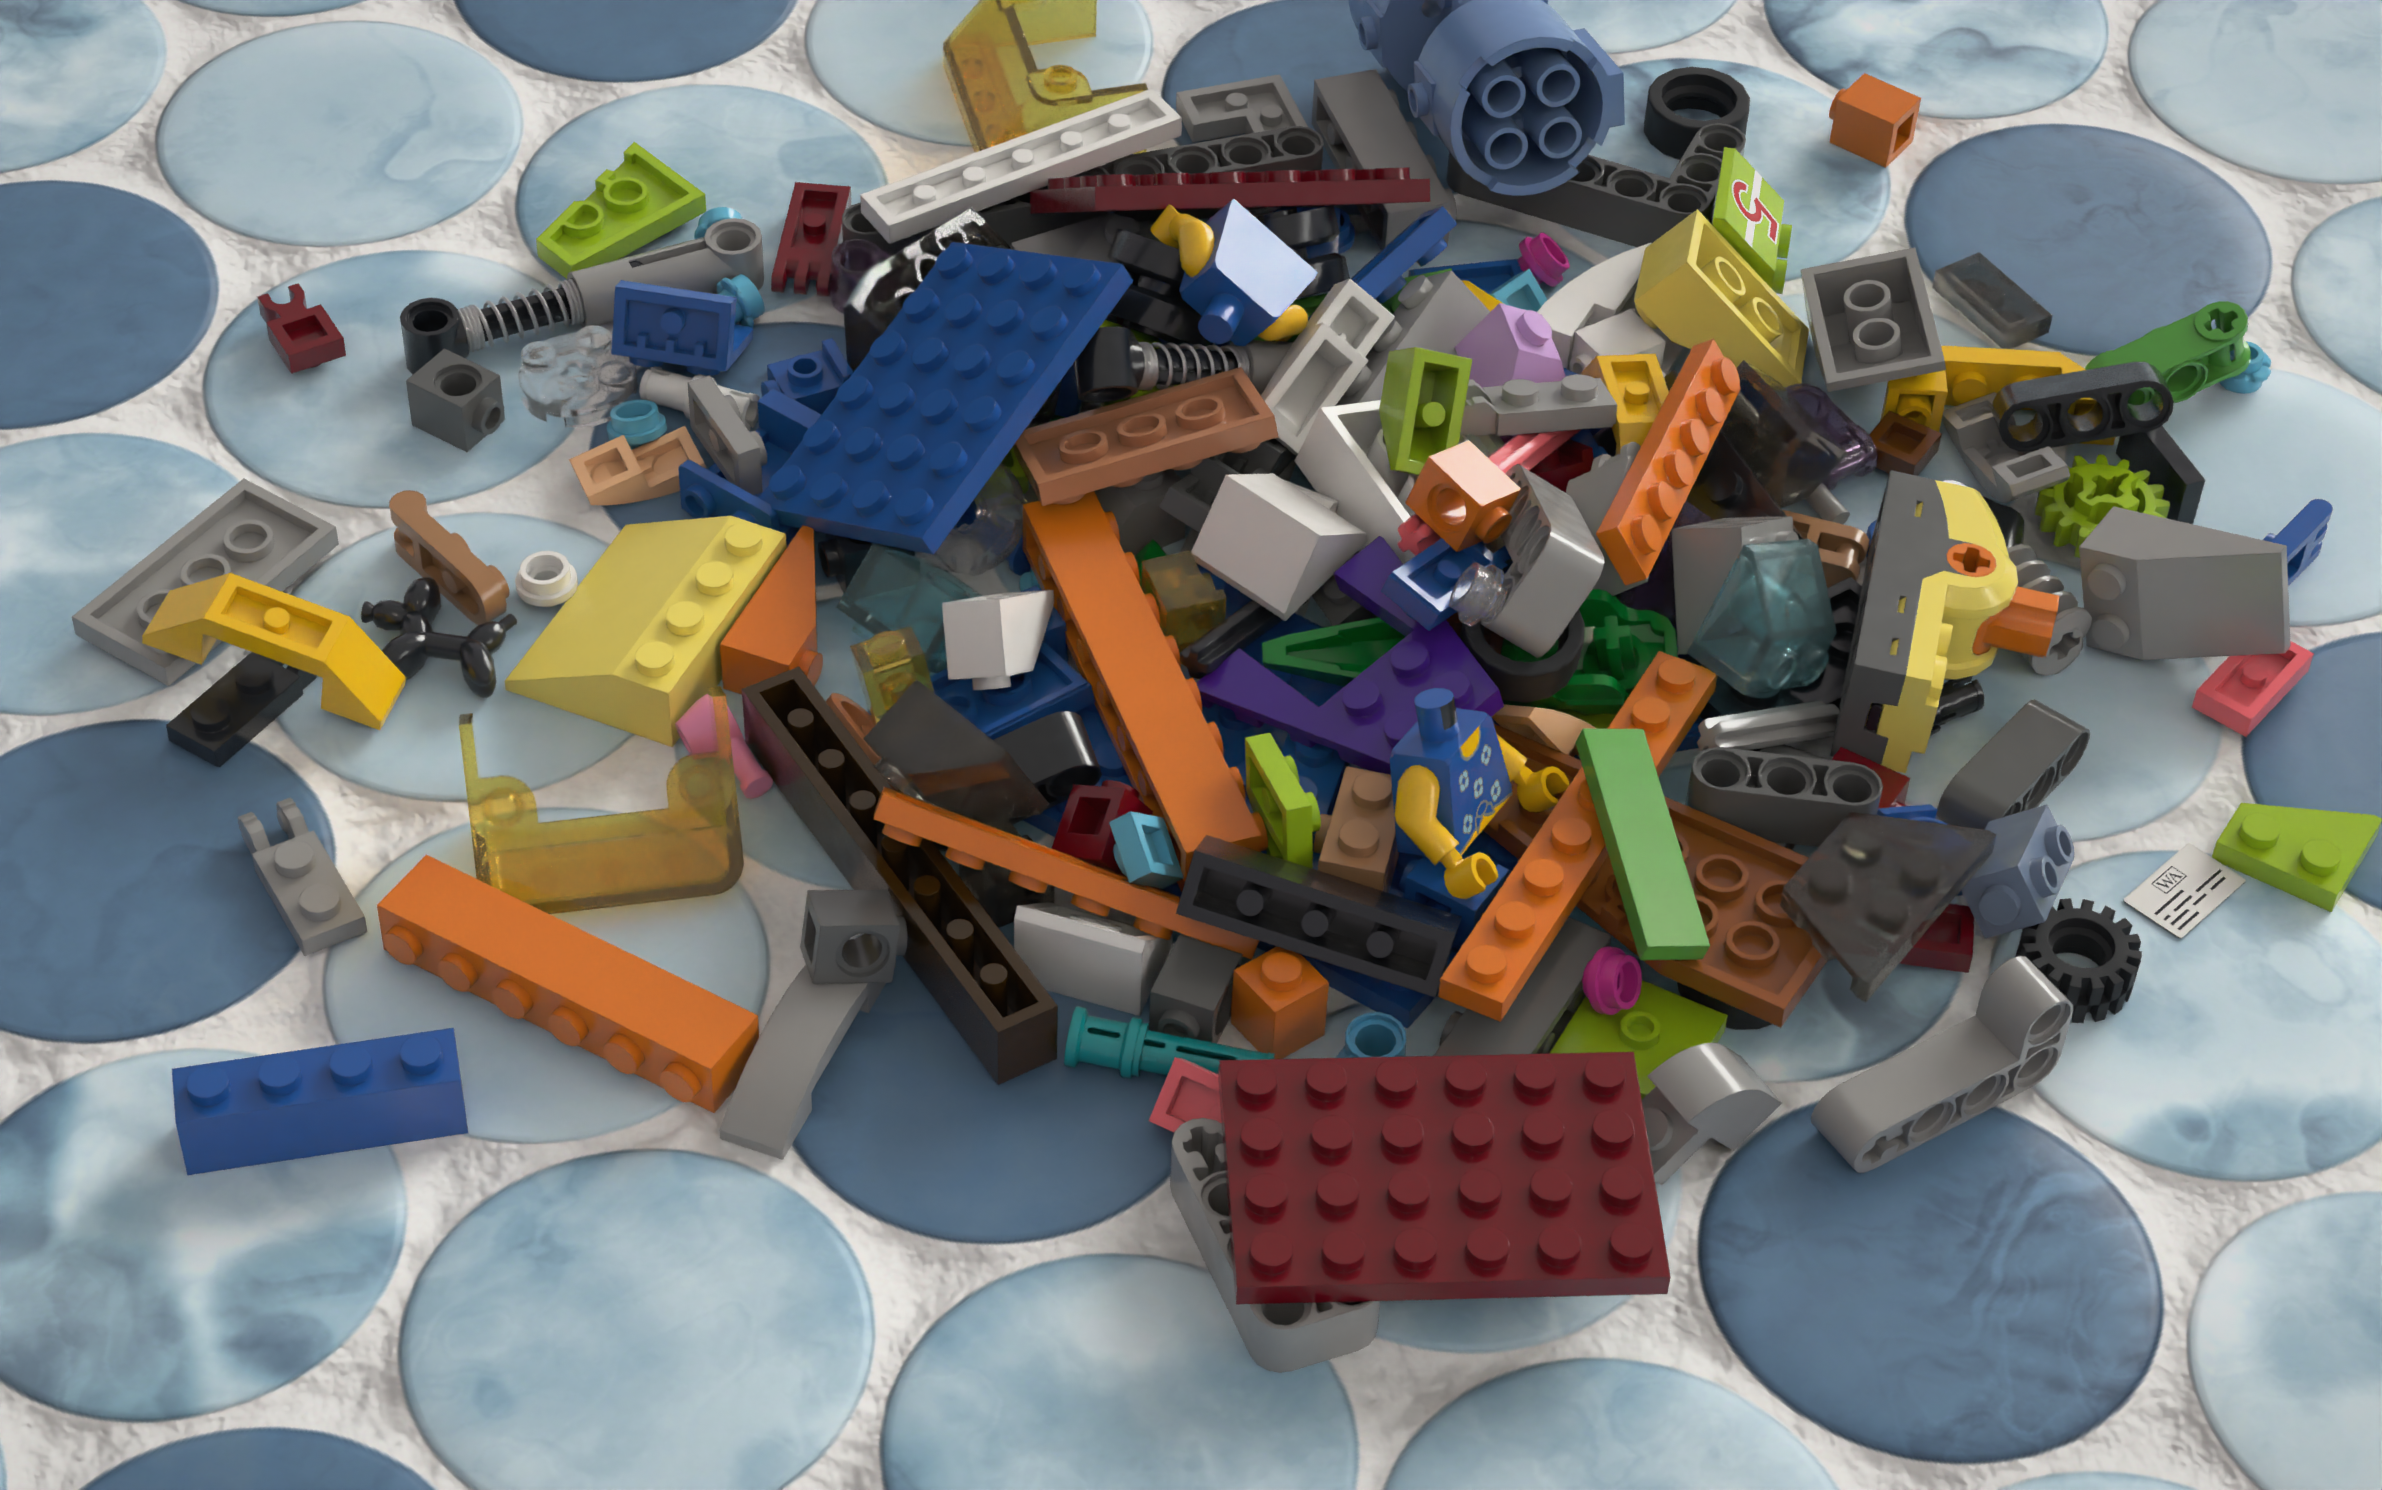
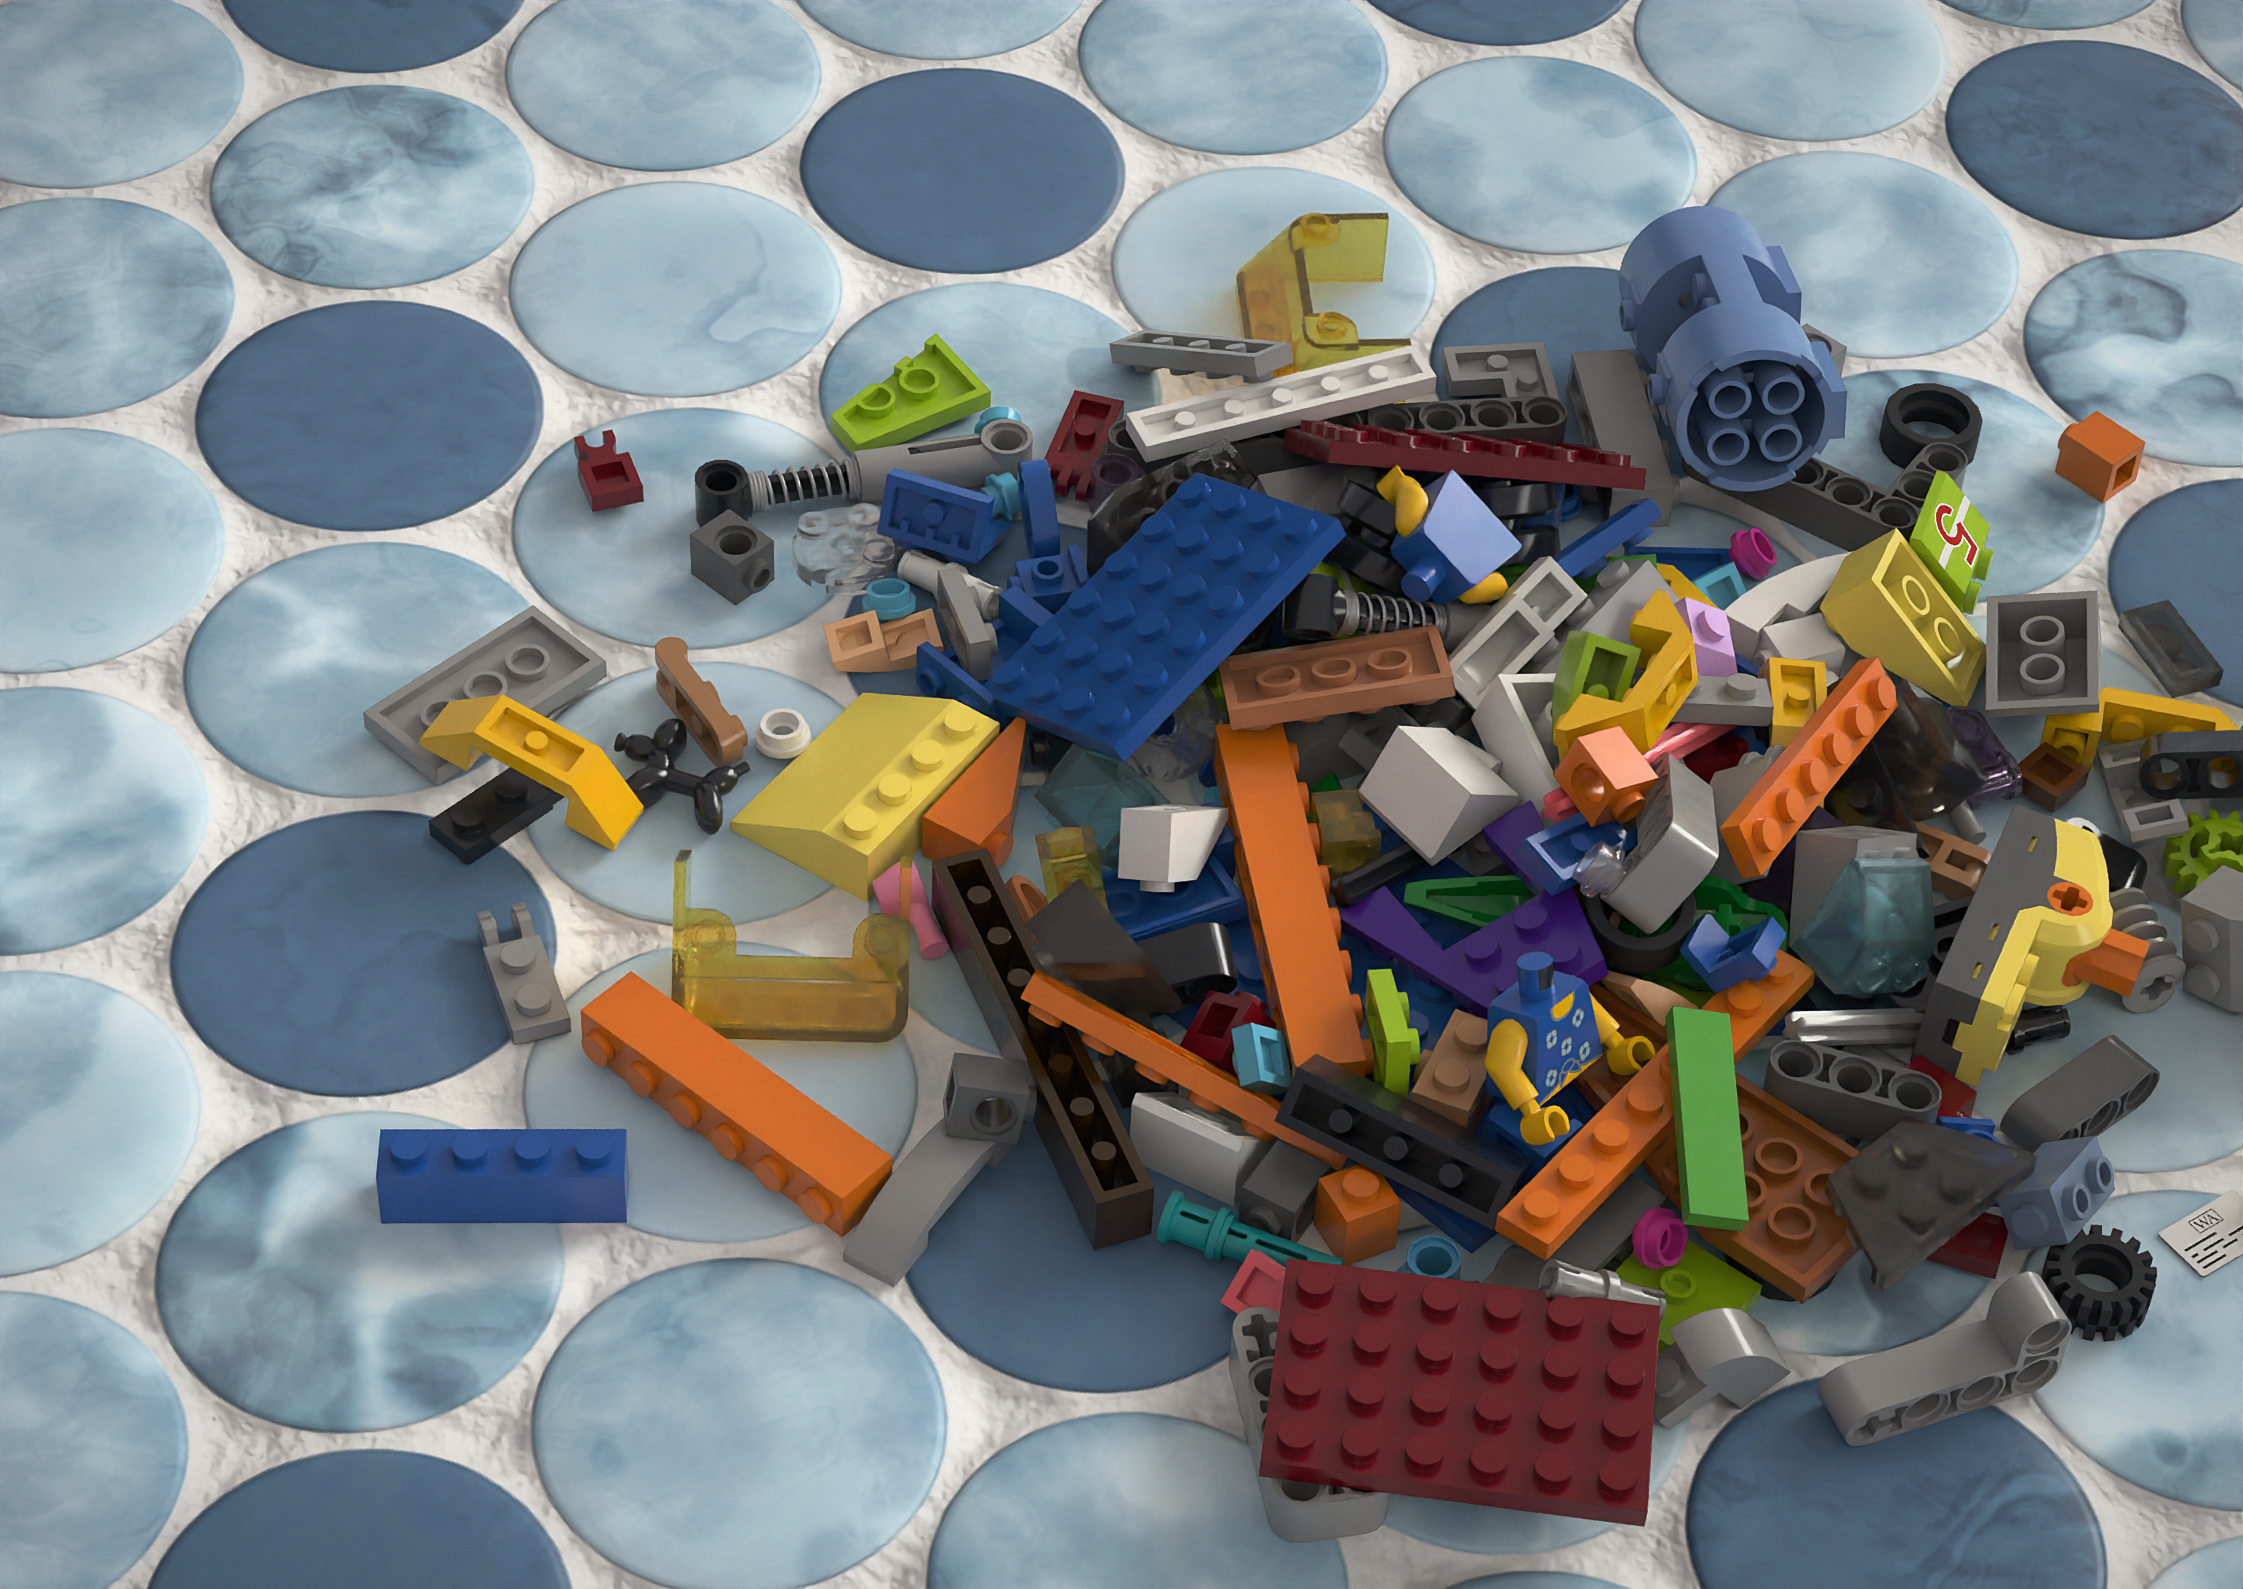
camera: 10 degrees right, 0 degrees up
(781, 306) = (1038, 508): none -> blue beam
(937, 125) = (1194, 353): none -> light grey plate
(1506, 385) = (1659, 693): none -> yellow slope
(1527, 1039) = (1566, 1280): none -> light grey pin
(1636, 670) = (1730, 960): none -> blue bracket

